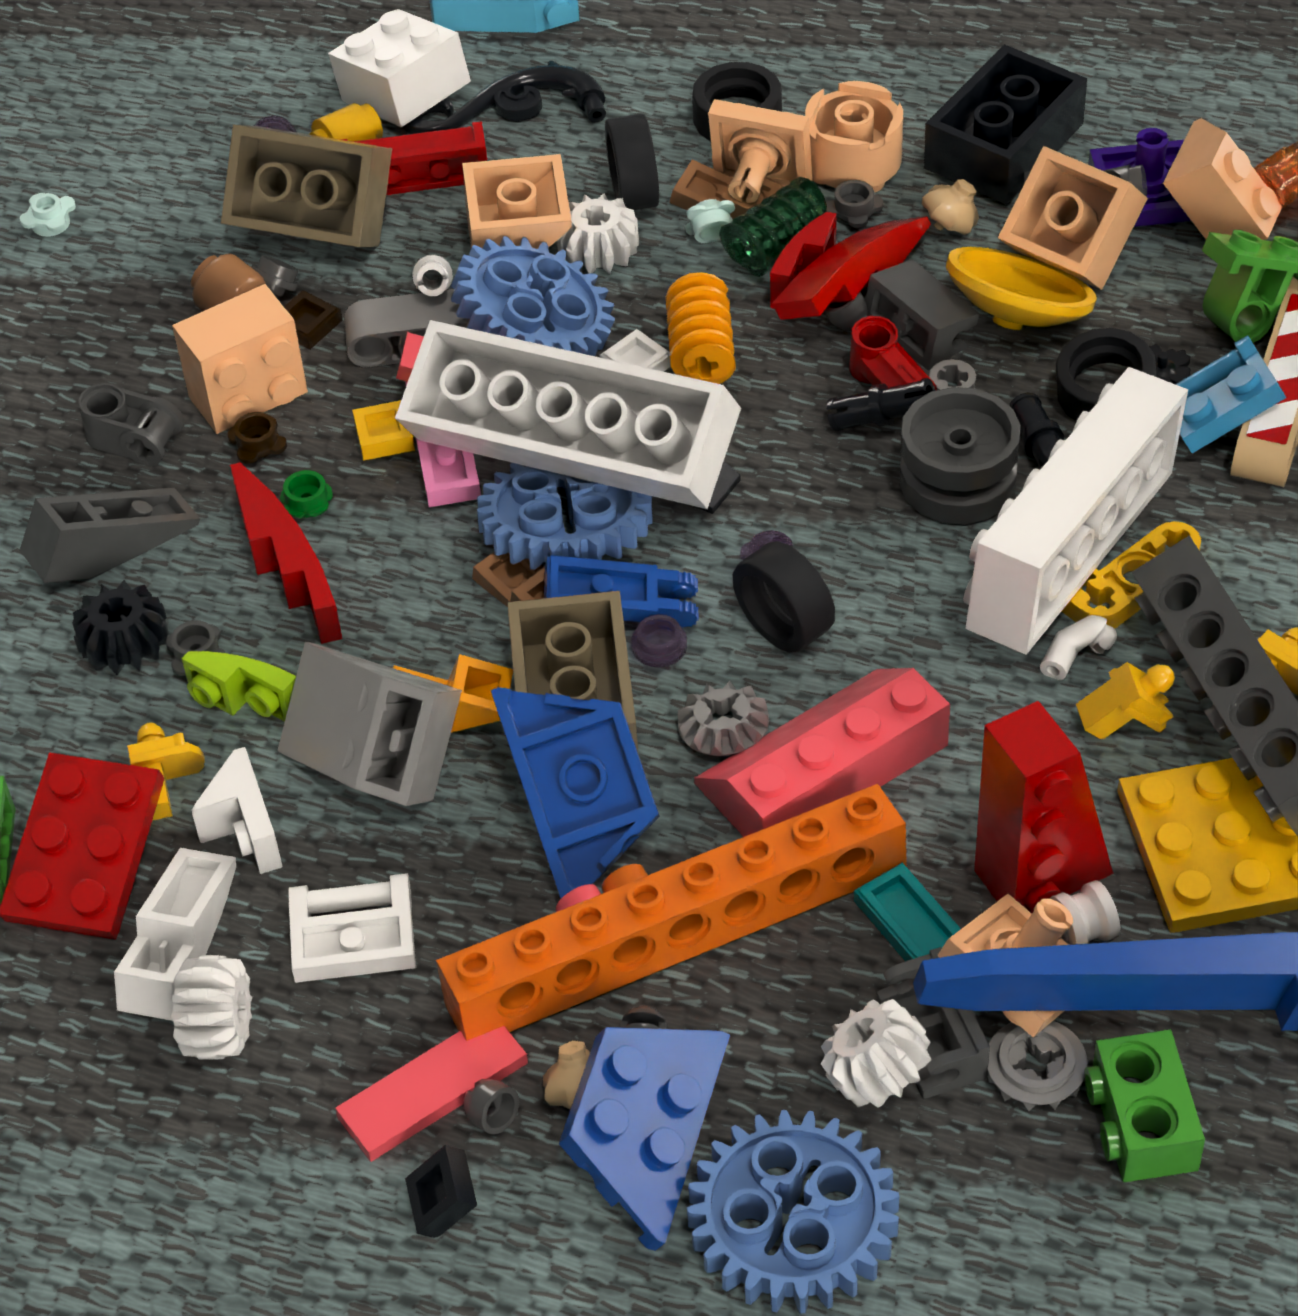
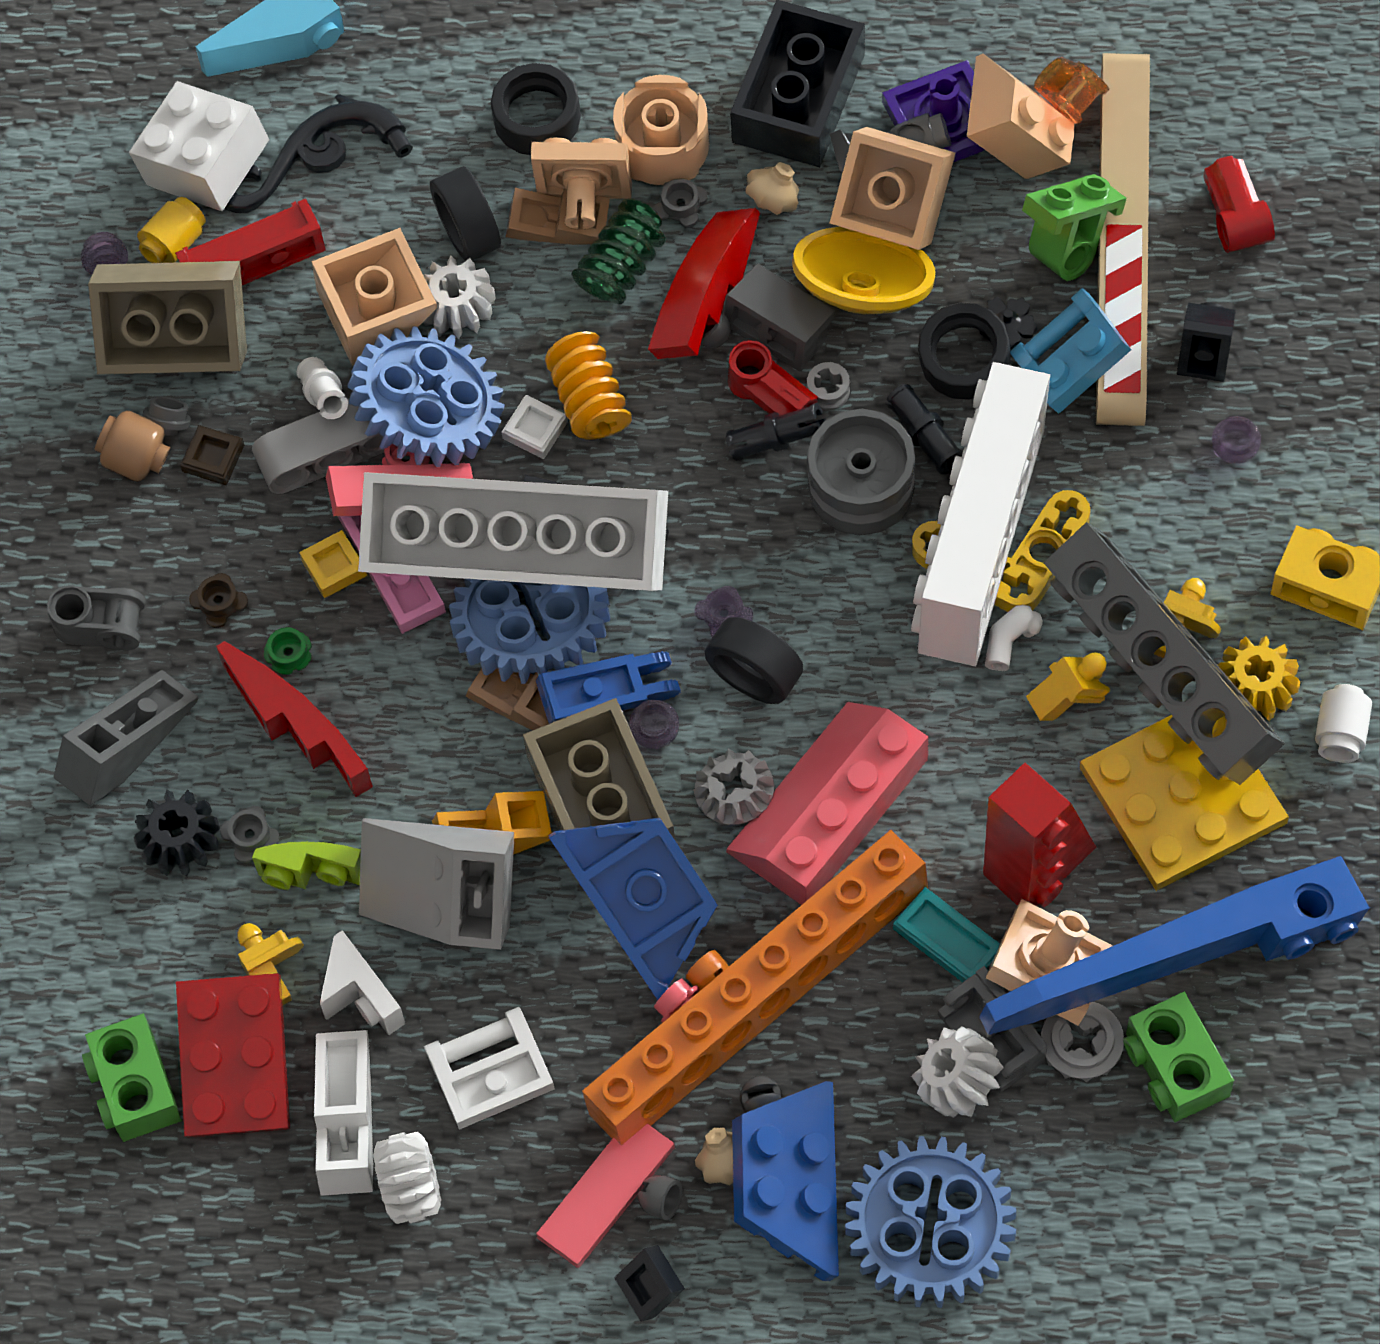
camera: 15 degrees left, 15 degrees up
(240, 357) = (181, 529): light nougat brick -> none
(708, 218) = (555, 255): light aqua plate -> none
(802, 251) = (655, 281): red slope -> none
(1092, 914) = (1088, 897): white wheel -> none

